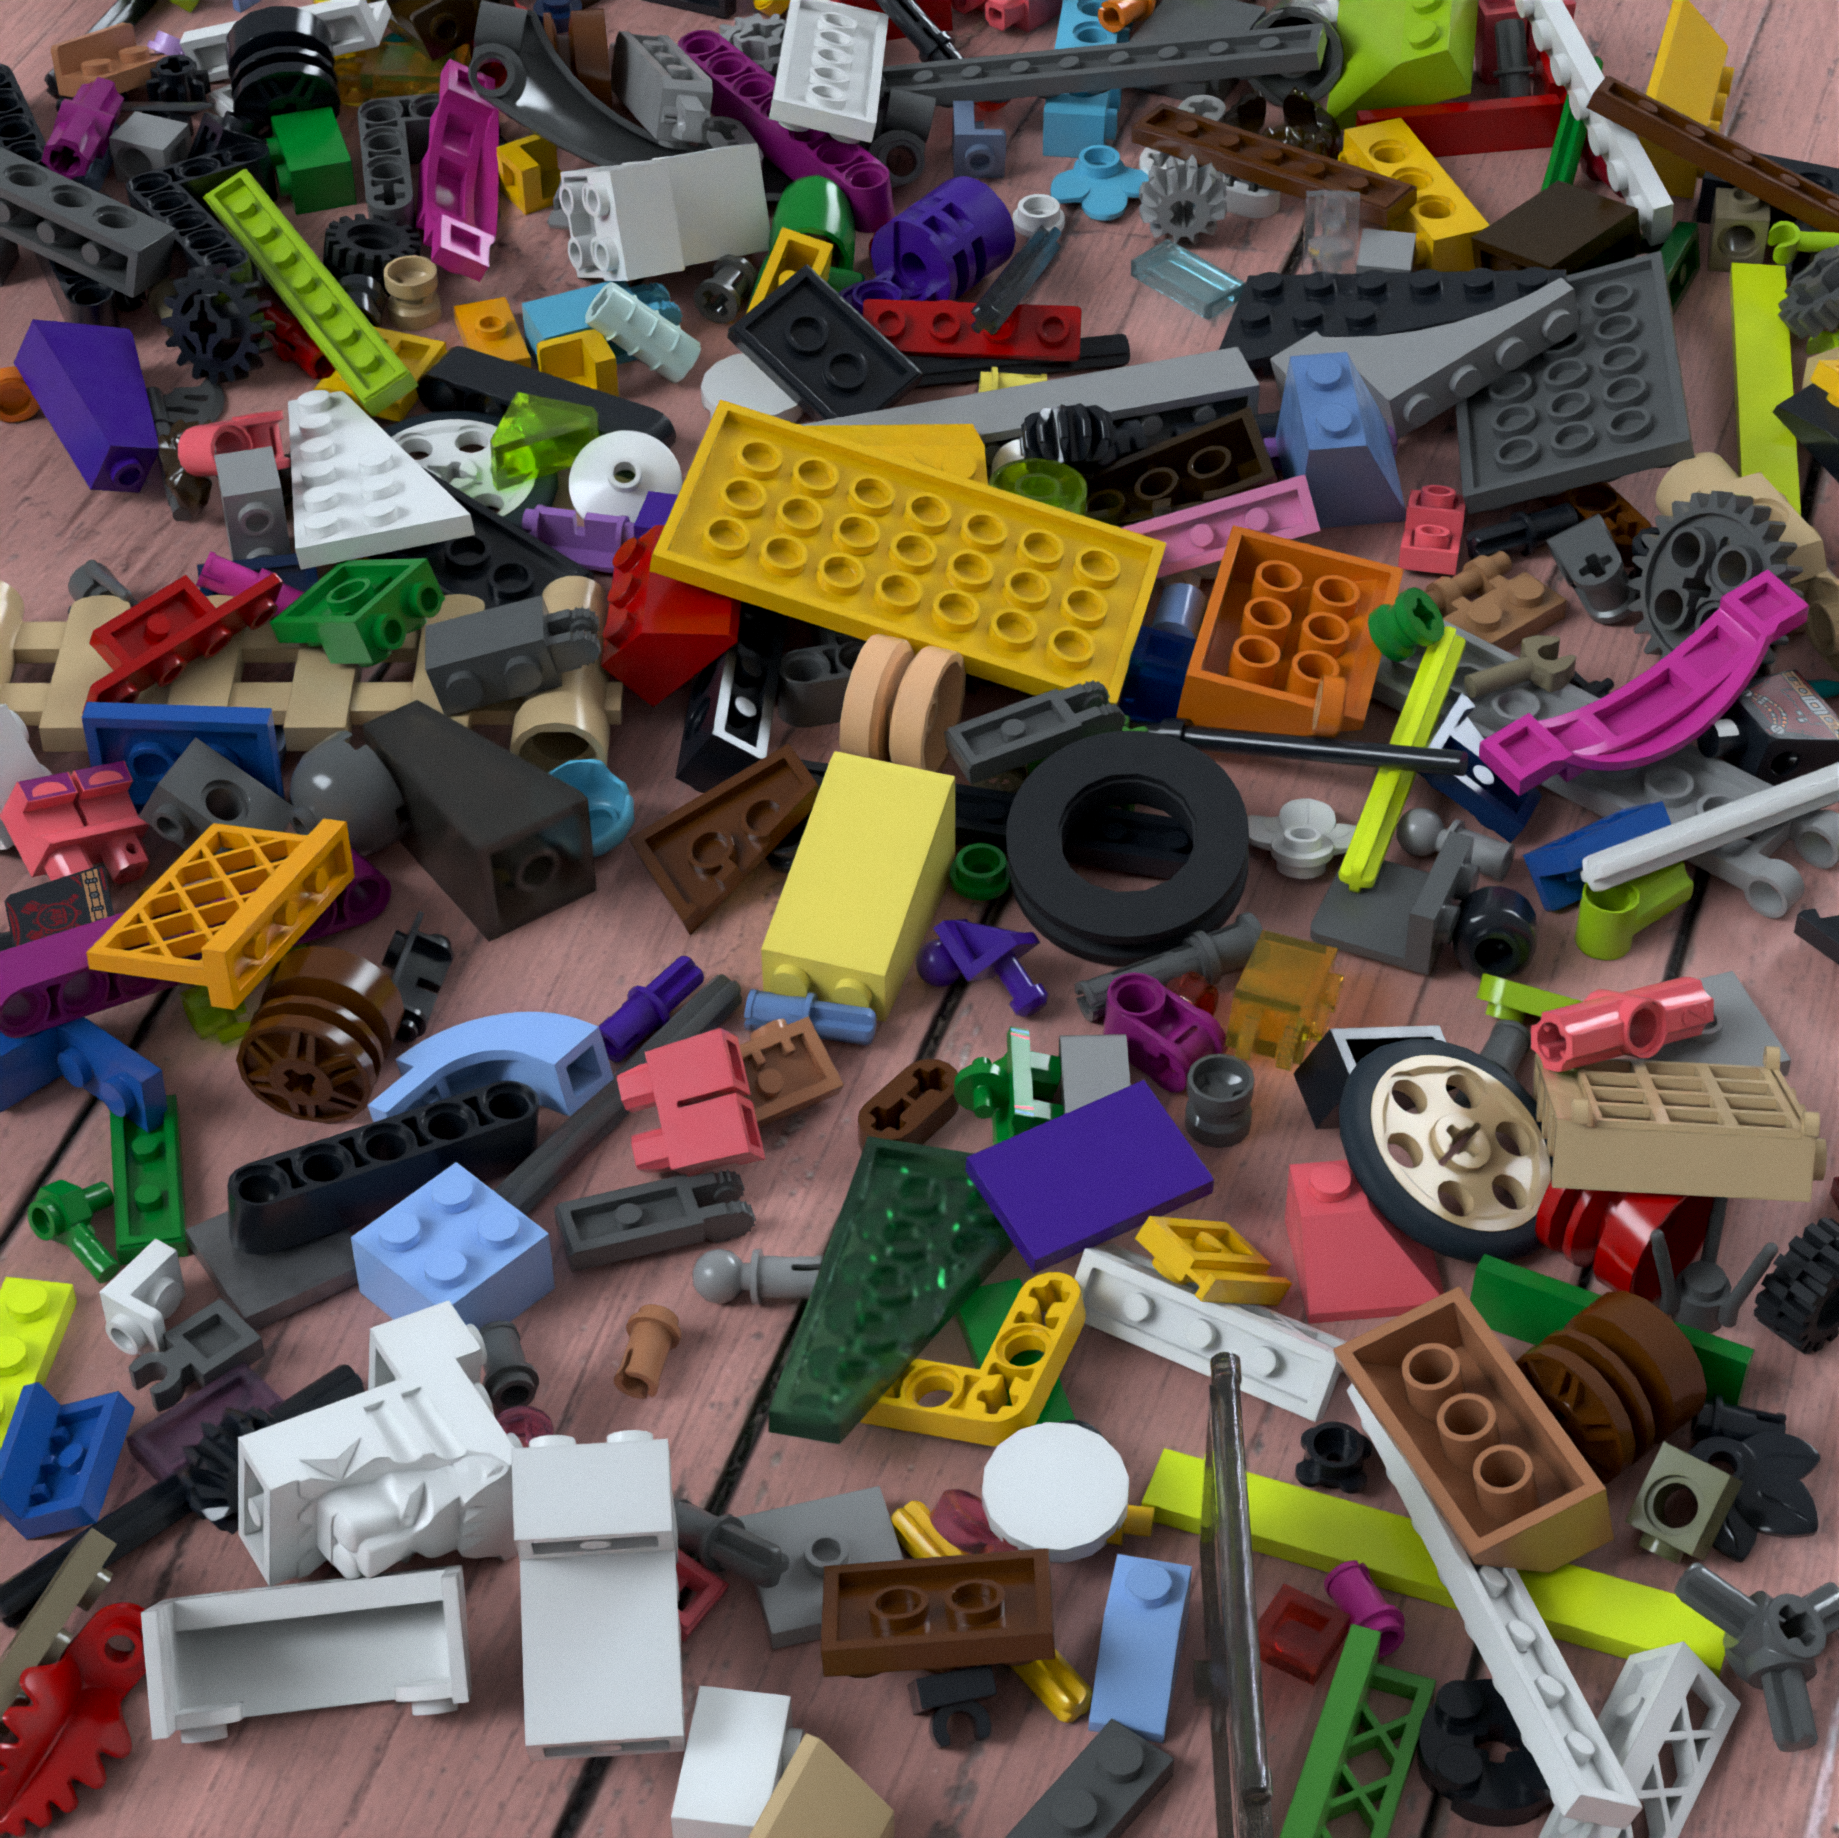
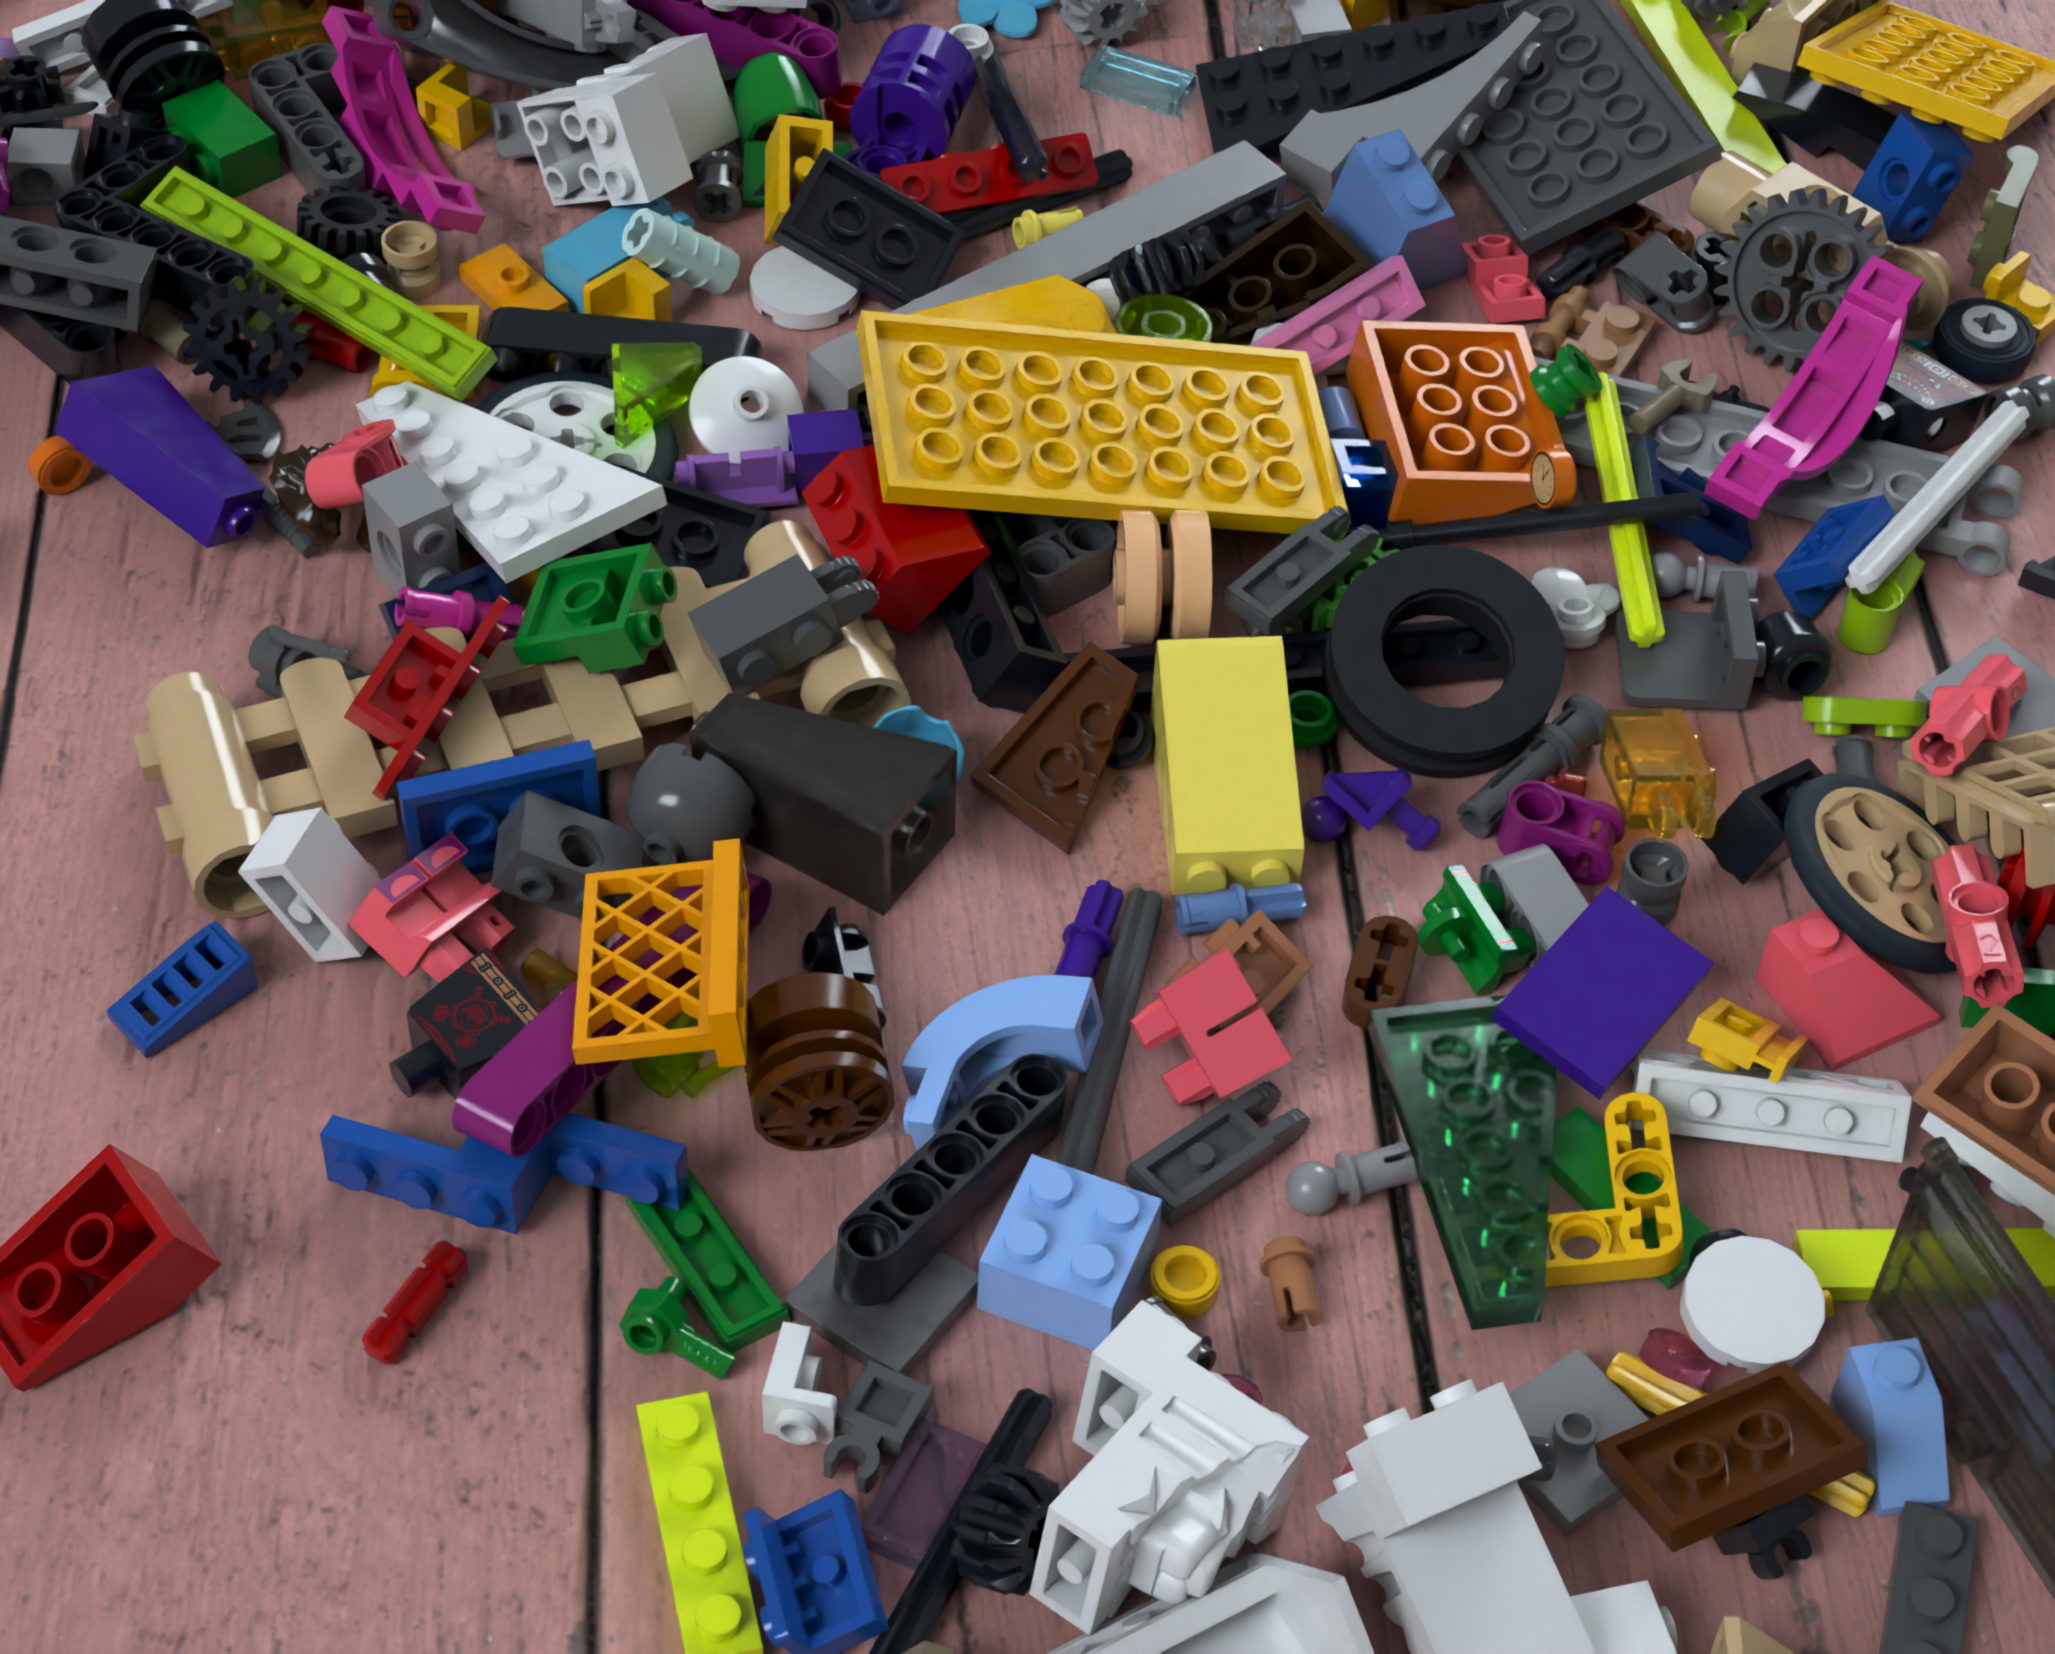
camera: 25 degrees left, 5 degrees up
(555, 1322) = (1185, 1280): none -> yellow tile
(1494, 1215) = (1977, 926): none -> coral piece

